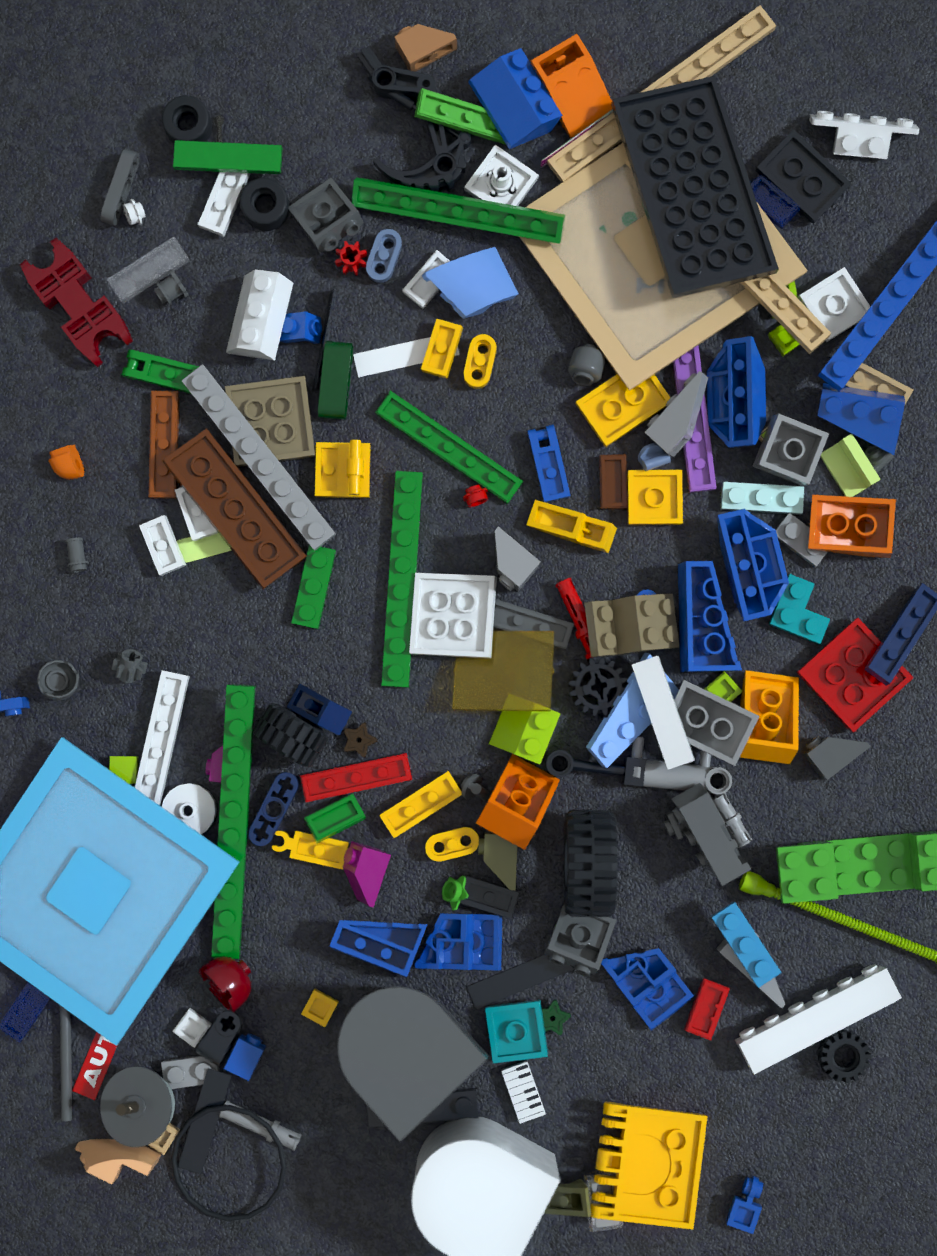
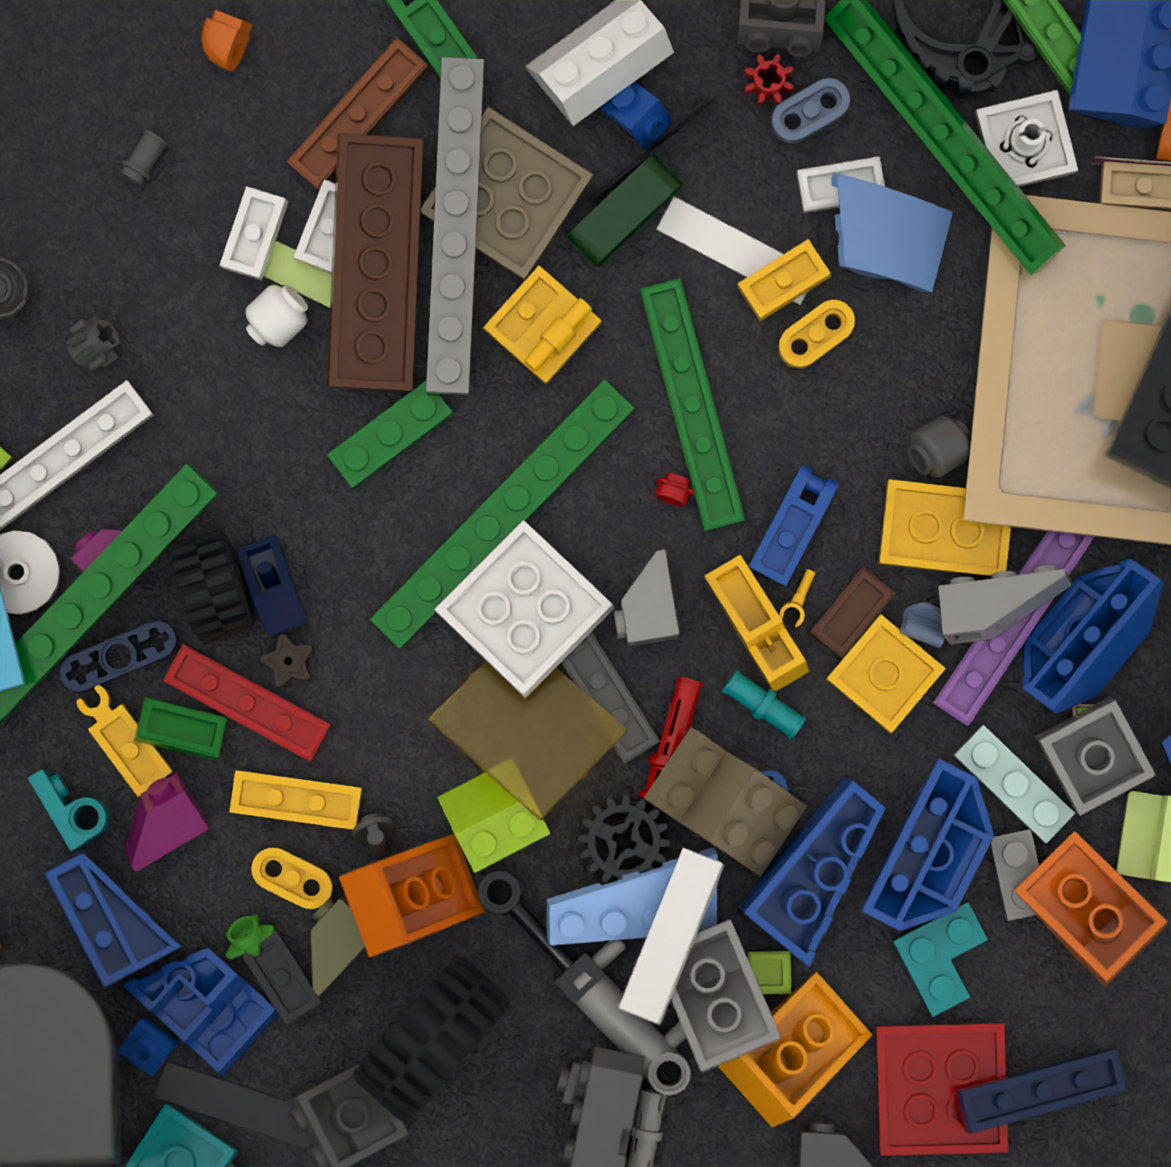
camera: 35 degrees right, 0 degrees up
(208, 576) = (276, 315): none -> white head
(298, 903) = (52, 793): none -> teal plate
(453, 987) = (148, 1046): none -> blue bracket
(581, 496) = (799, 597): none -> yellow hand
(608, 562) = (763, 704): none -> teal pin

